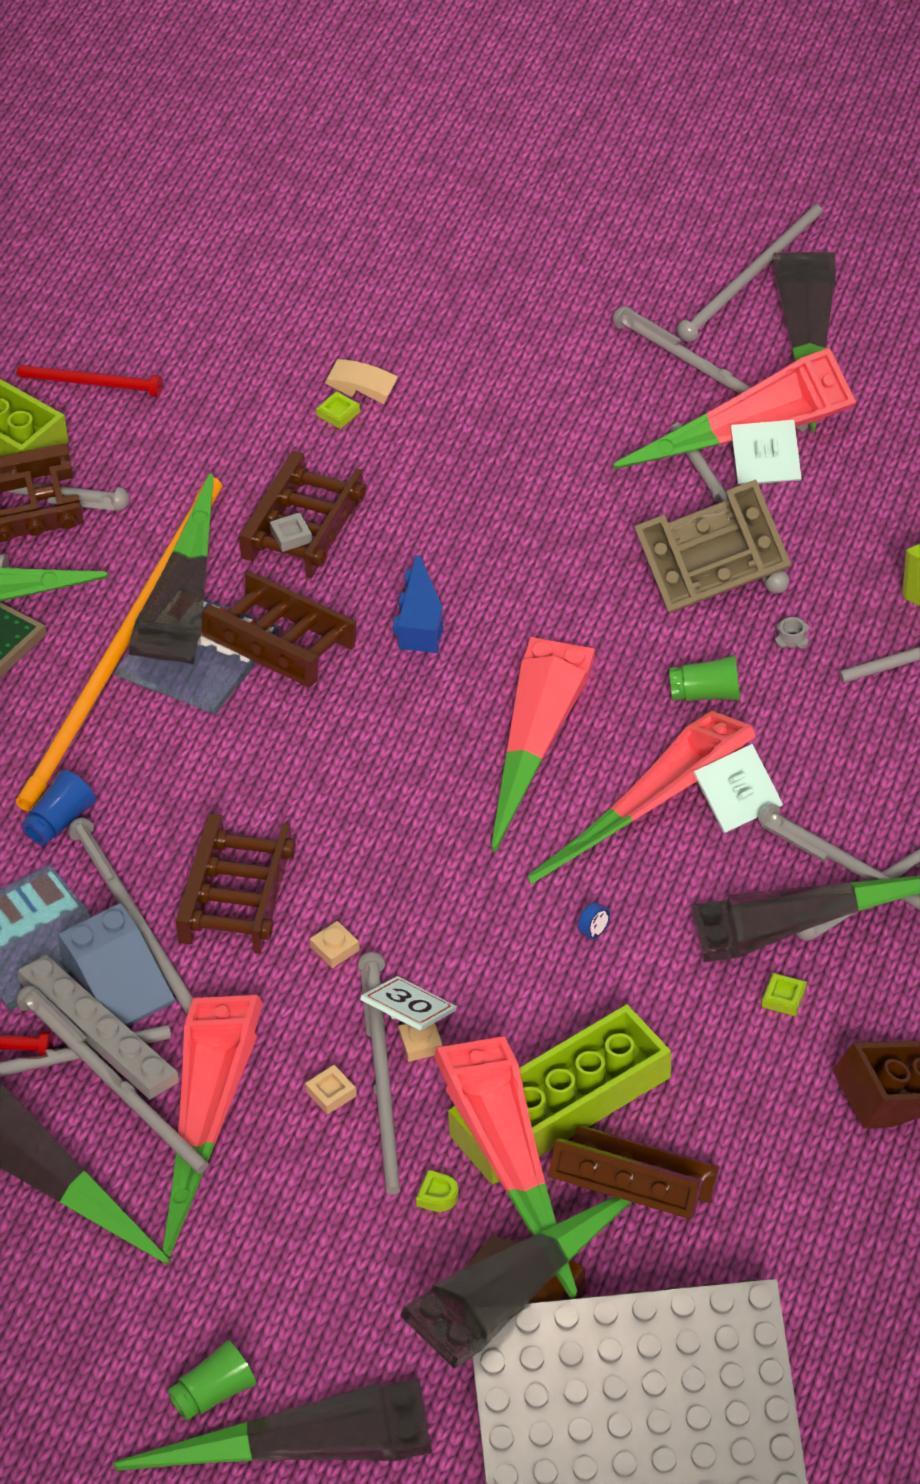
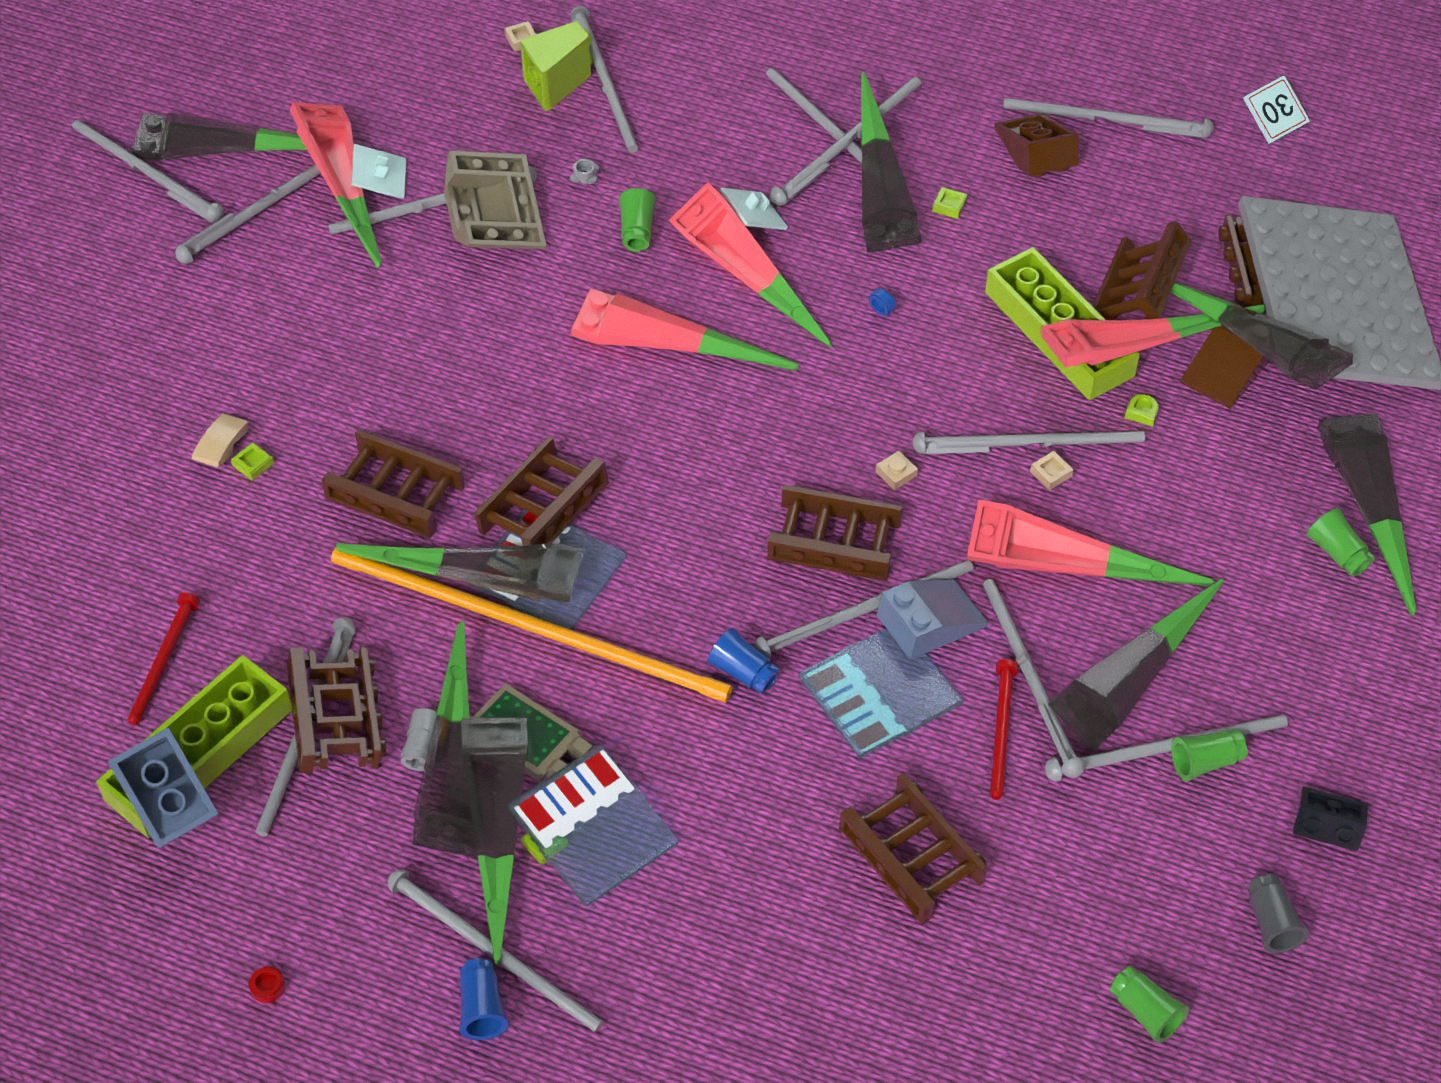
camera: 90 degrees left, 5 degrees up
(33, 999) = (972, 666): light grey bar -> none
(103, 1029) = (995, 624): light grey plate -> none
(291, 532) = (426, 483): light grey tile -> none
(408, 1003) = (967, 416): light aqua piece -> none
(419, 1043) = (995, 416): tan plate -> none
(421, 614) = (530, 399): blue slope -> none

